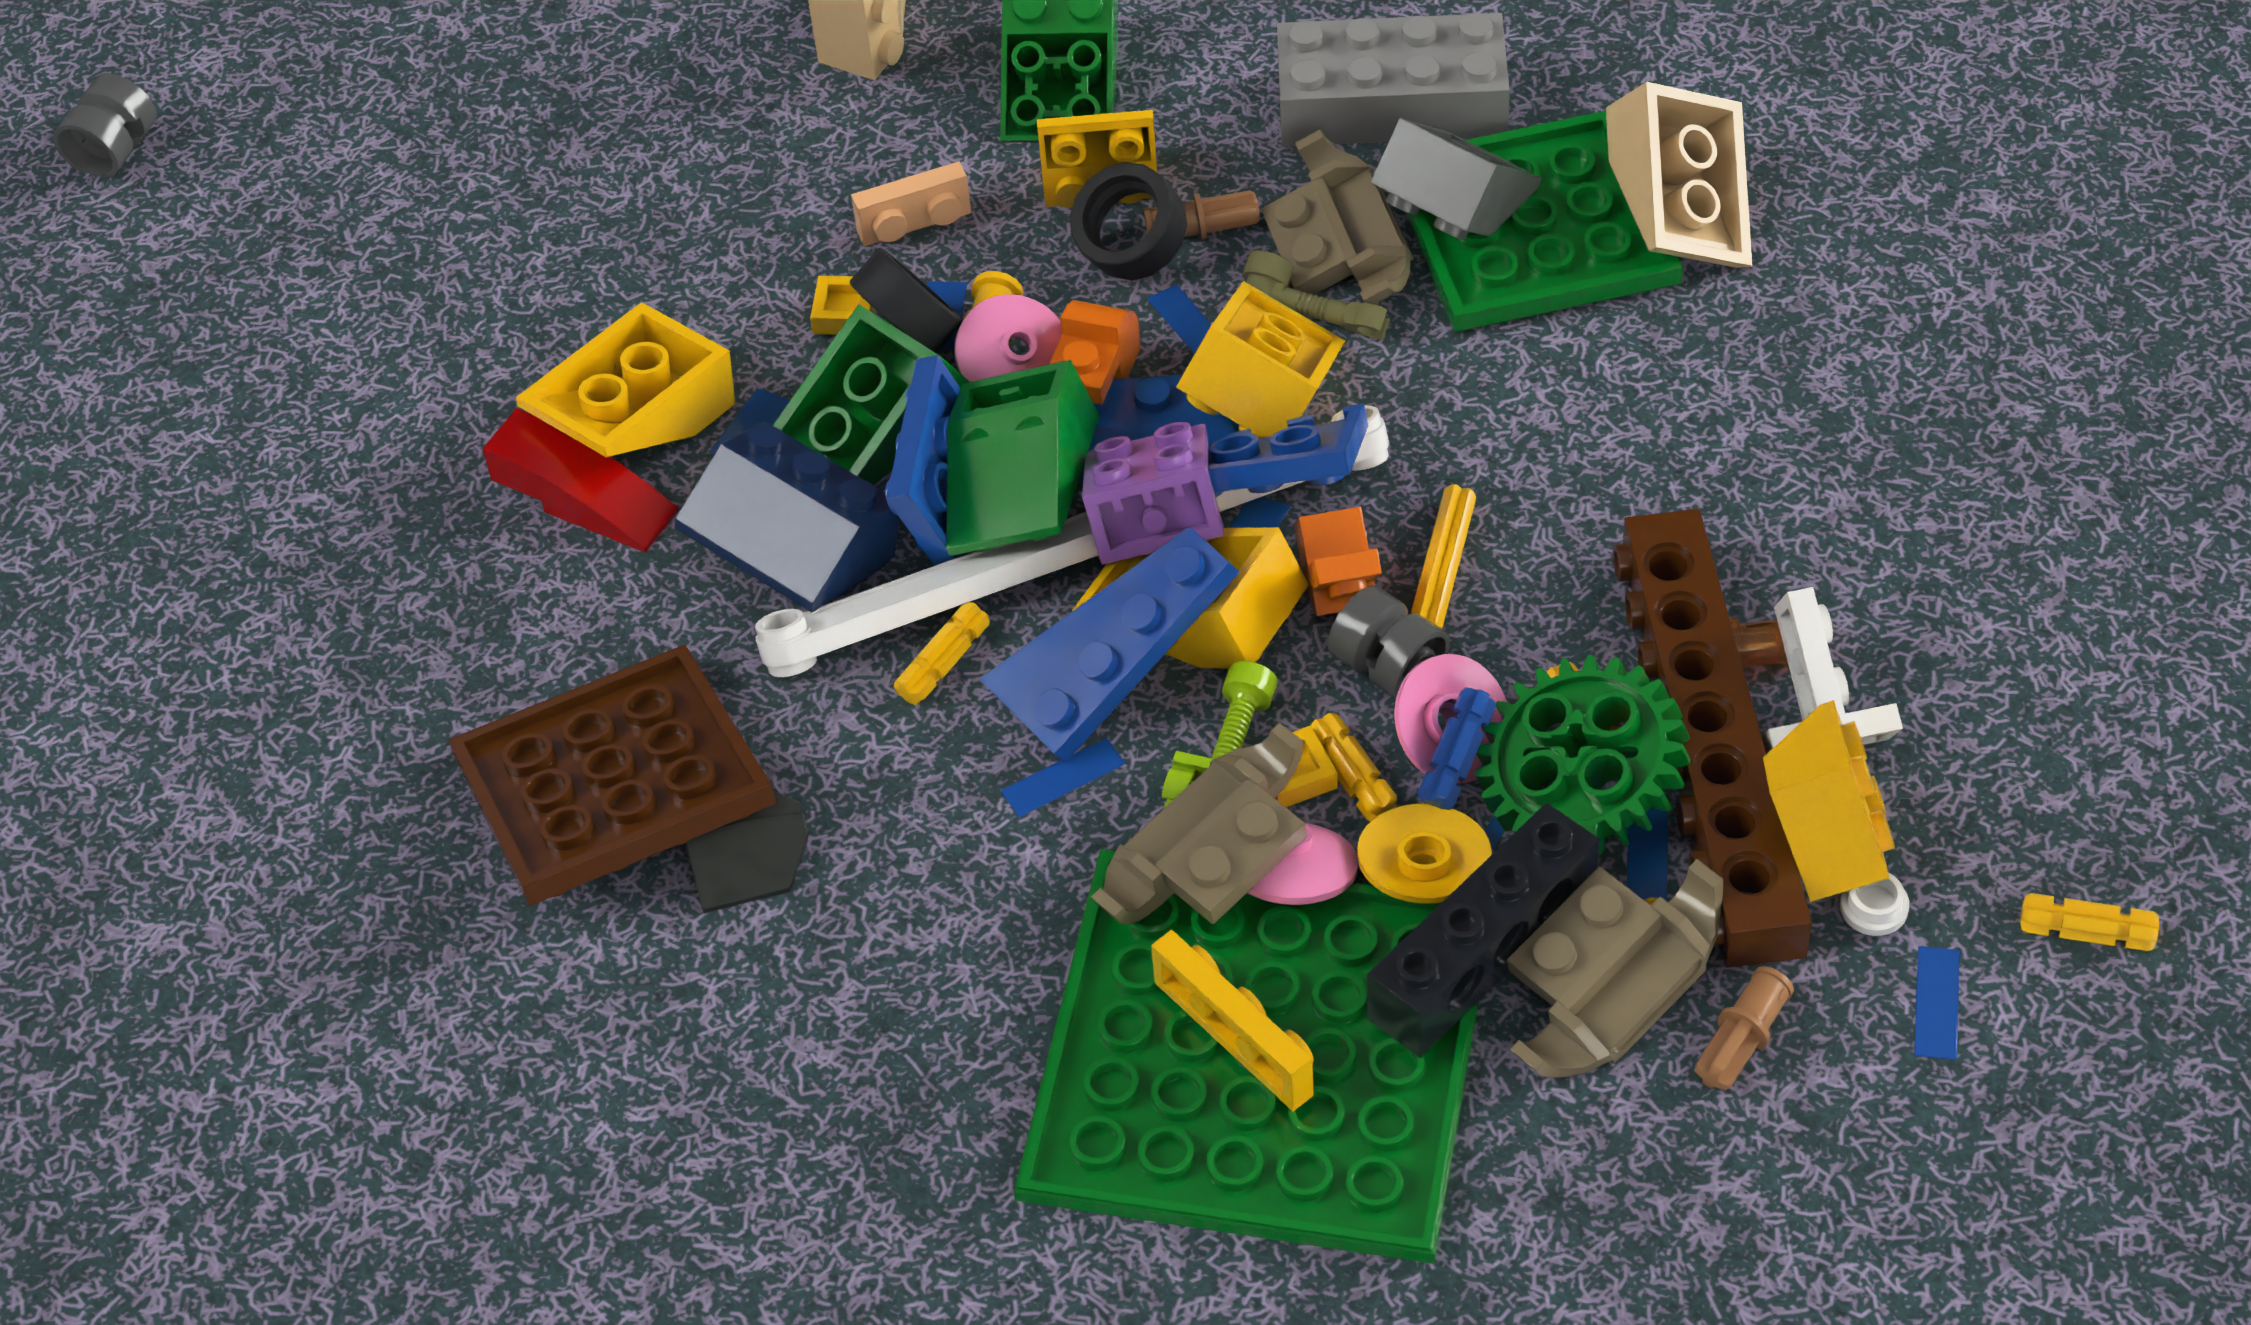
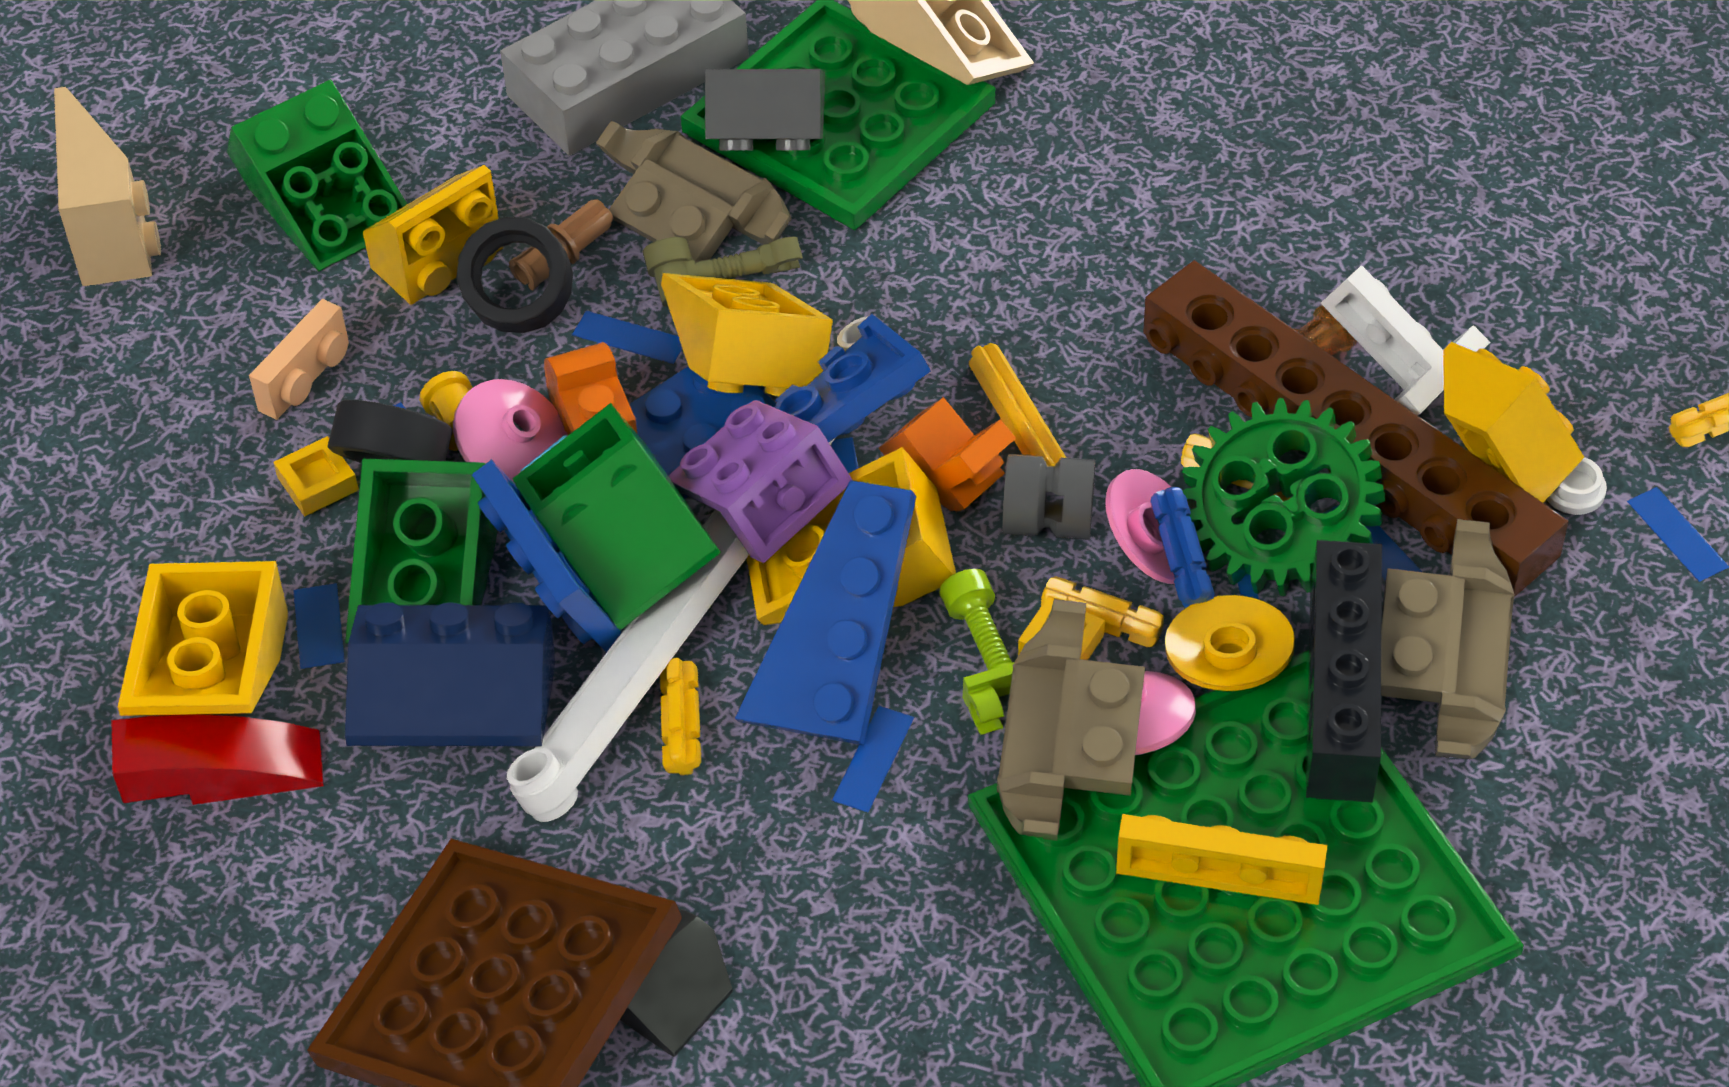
camera: 40 degrees left, 0 degrees up
(1743, 1028) = (1575, 633): medium nougat axle -> none

